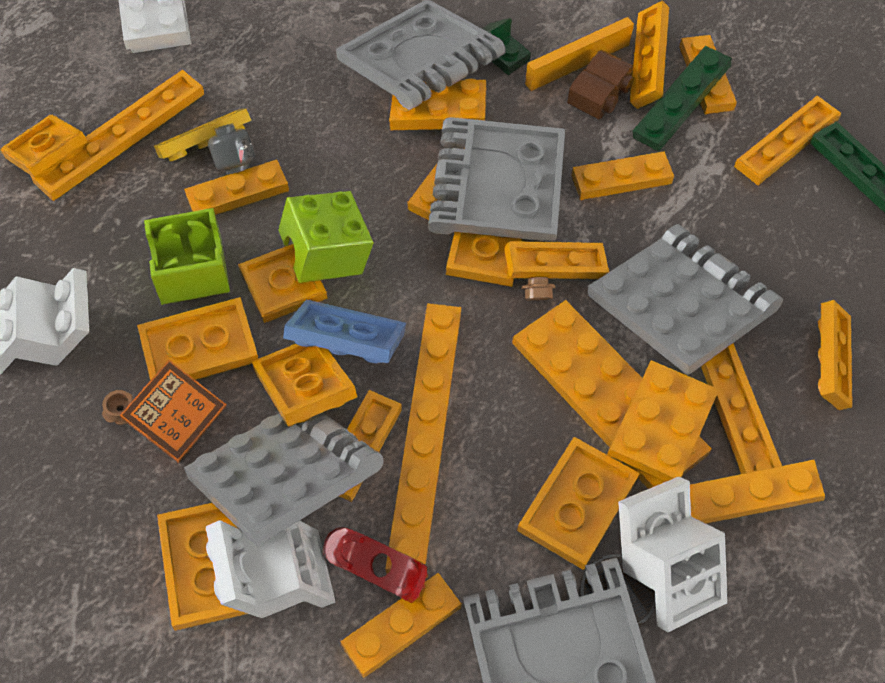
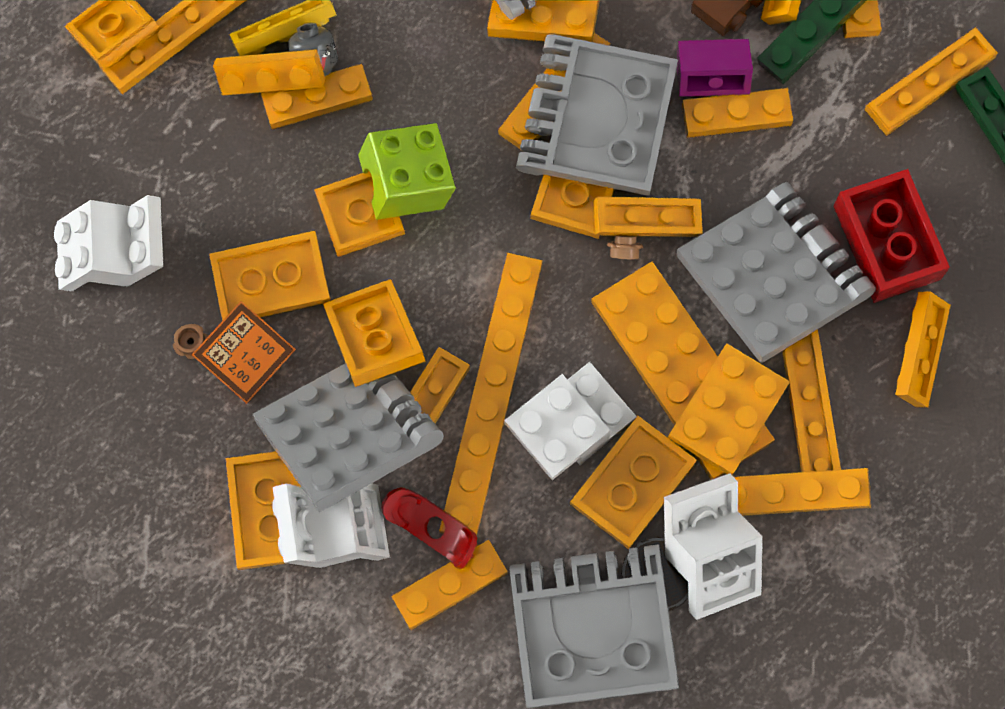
camera: 10 degrees right, 15 degrees up
(186, 256) = (262, 182): lime piece -> none
(191, 167) = (269, 72): none -> light orange plate
(345, 331) = (419, 280): medium blue plate -> none
(507, 445) = (570, 420): none -> white bracket
(598, 137) = (714, 67): none -> magenta brick
(786, 256) = (891, 235): none -> red brick

